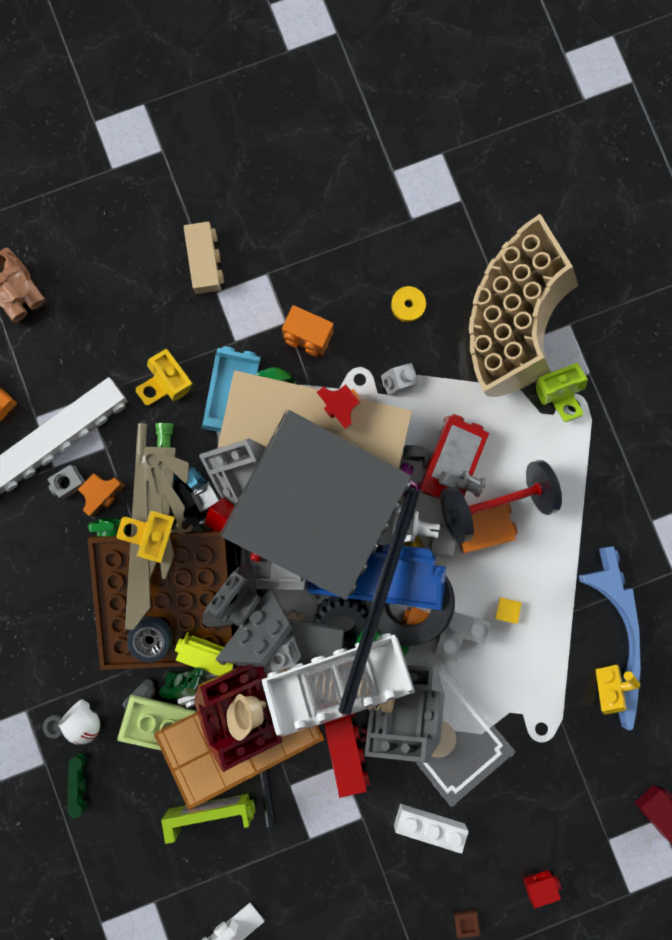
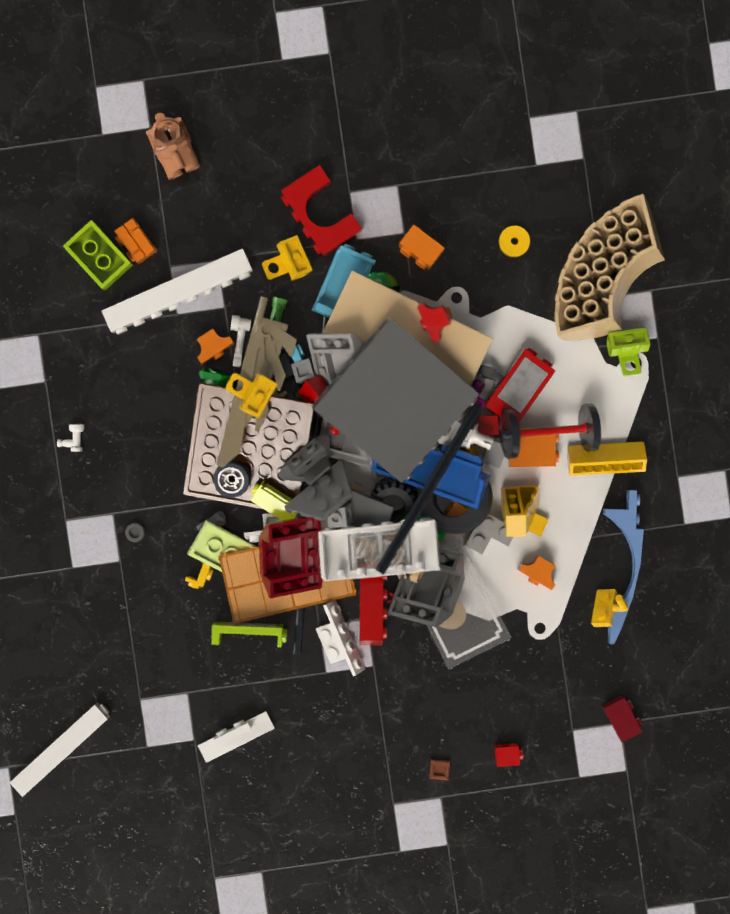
camera: 20 degrees right, 5 degrees up
(75, 478) = (195, 330): light grey brick -> none
(76, 785) = (144, 584): dark green plate -> none
(80, 724) = (158, 534): white helmet -> none
(126, 463) = (240, 325): none -> white brick
(144, 757) = (205, 574): none -> yellow bracket
(160, 307) = (325, 238): none -> red arch
(182, 684) = (250, 521): dark green plate -> none
(203, 257) = (345, 160): tan brick -> none
(244, 715) = (297, 557): tan piece -> none
(315, 798) = (338, 641): none -> white bracket
(399, 378) = (491, 305): light grey bracket -> none
(429, 510) = (488, 425): none -> red brick
(431, 828) = (428, 685): white brick -> none
(464, 482) = (523, 408): dark grey connector -> none
(486, 598) = (519, 508): none -> yellow wedge
(526, 665) = (539, 572): none -> orange brick
(572, 519) = (607, 459): none -> yellow brick

